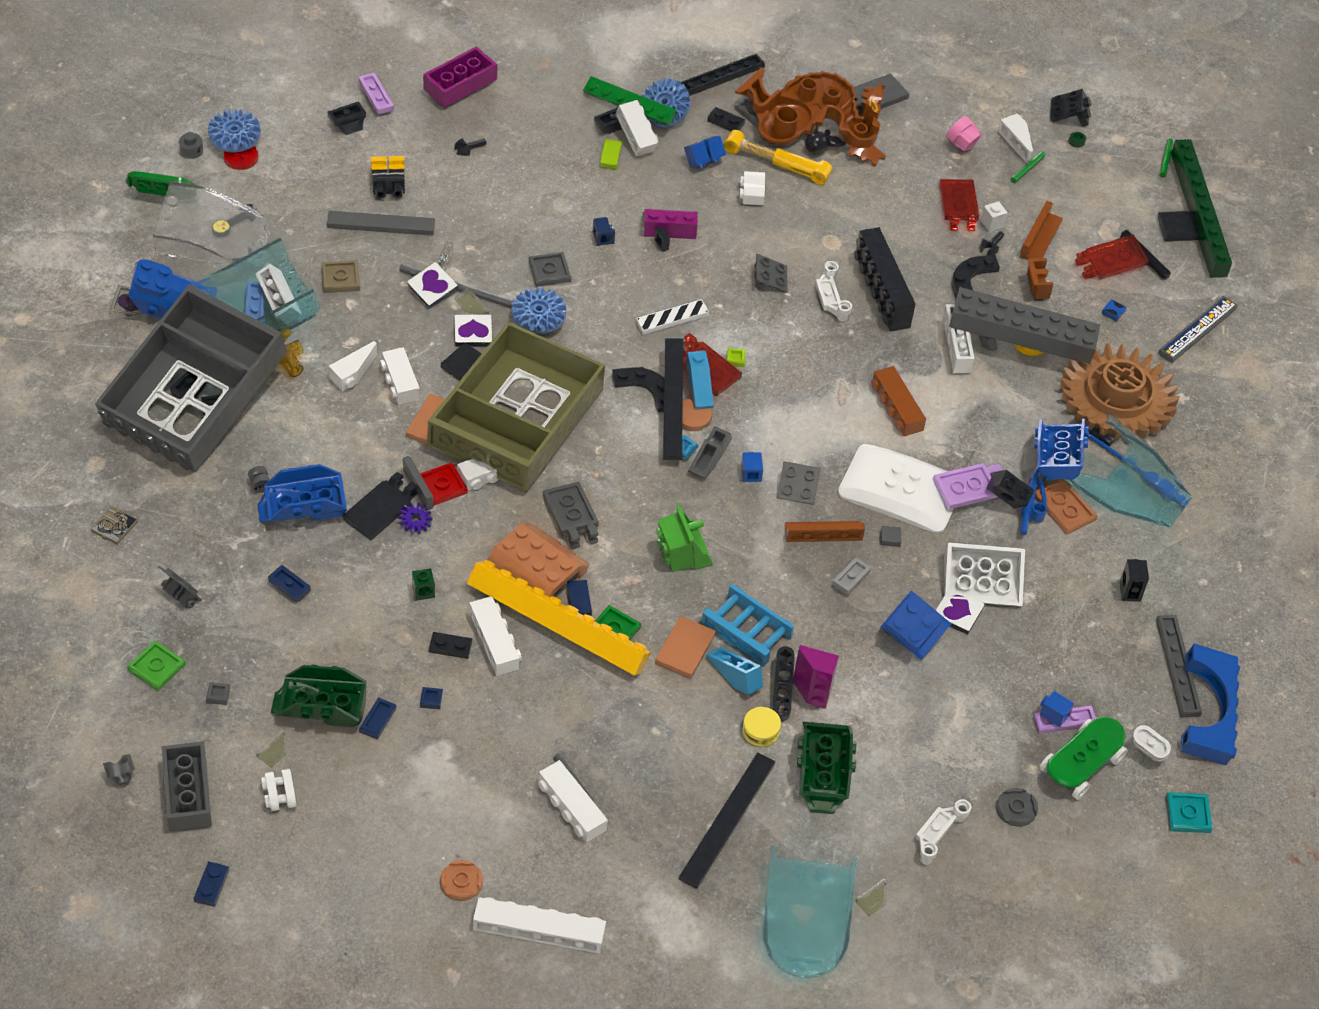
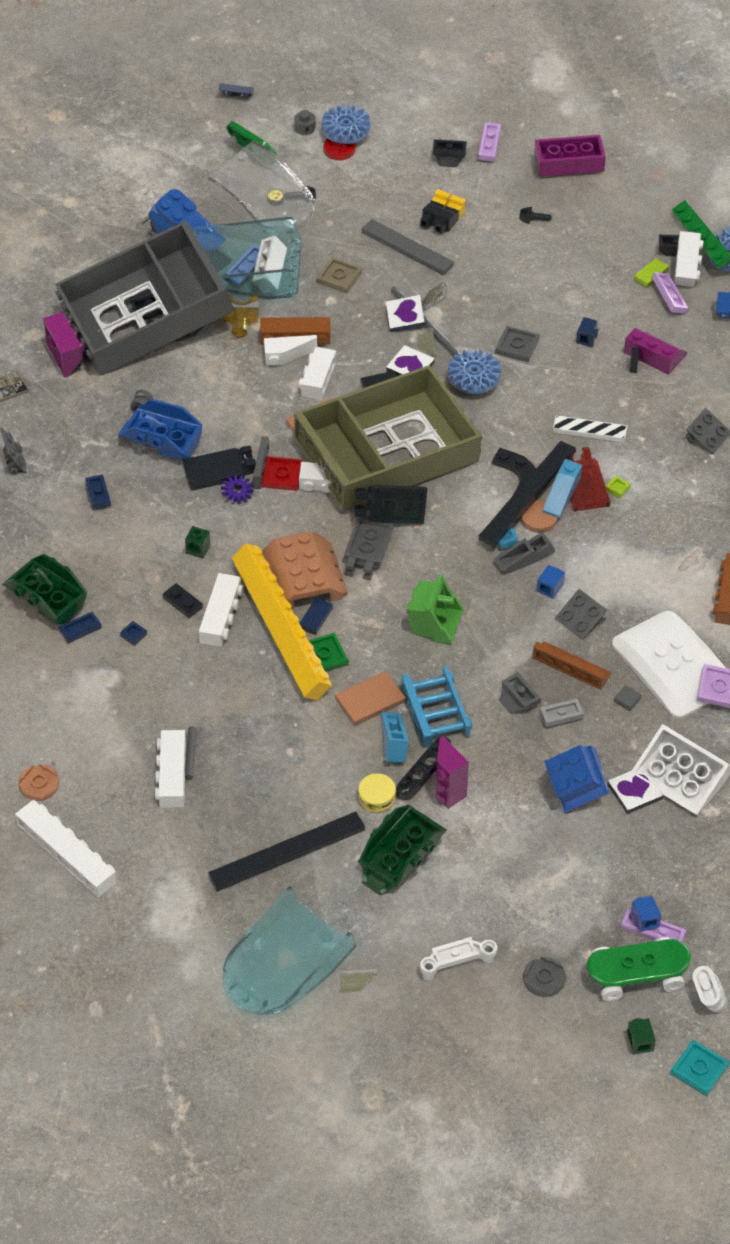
camera: 40 degrees right, 0 degrees up
(91, 142) = (230, 89): none -> dark blue plate
(142, 458) = (63, 342): none -> magenta slope
(344, 344) = (295, 326): none -> dark orange brick
(570, 463) = (392, 504): none -> black tile
(642, 165) = (670, 292): none -> lavender plate
(805, 579) = (518, 694): none -> dark grey slope
(1129, 812) = (641, 1036): none -> dark green brick

